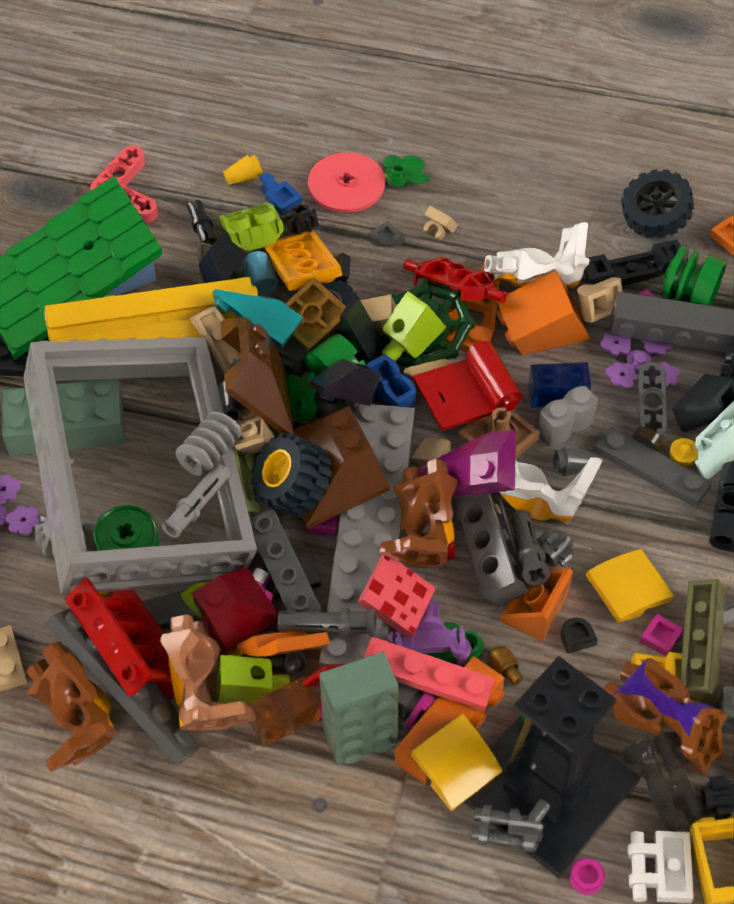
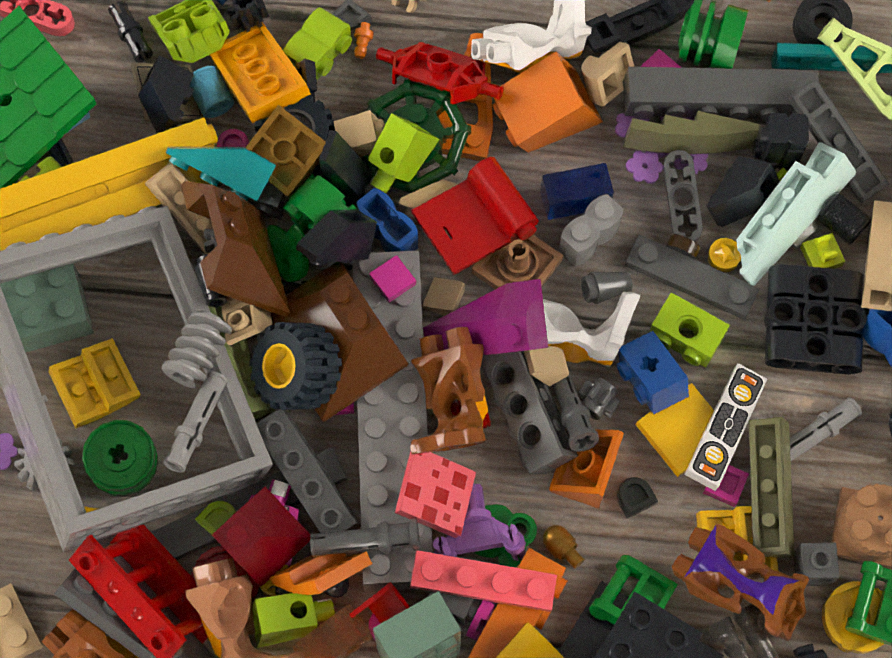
camera: 10 degrees left, 15 degrees up
(116, 479) = (94, 383): none -> yellow slope
(360, 244) = (320, 41): none -> lime brick
(387, 423) = (392, 278): none -> dark pink tile
(395, 251) = (363, 36): none -> orange piece
(512, 510) = (547, 364): none -> tan slope
(606, 532) = (652, 372): none -> blue brick
(637, 491) = (680, 314): none -> lime brick
(666, 585) = (725, 427): none -> tile
(674, 354) = (699, 136): none -> olive slope

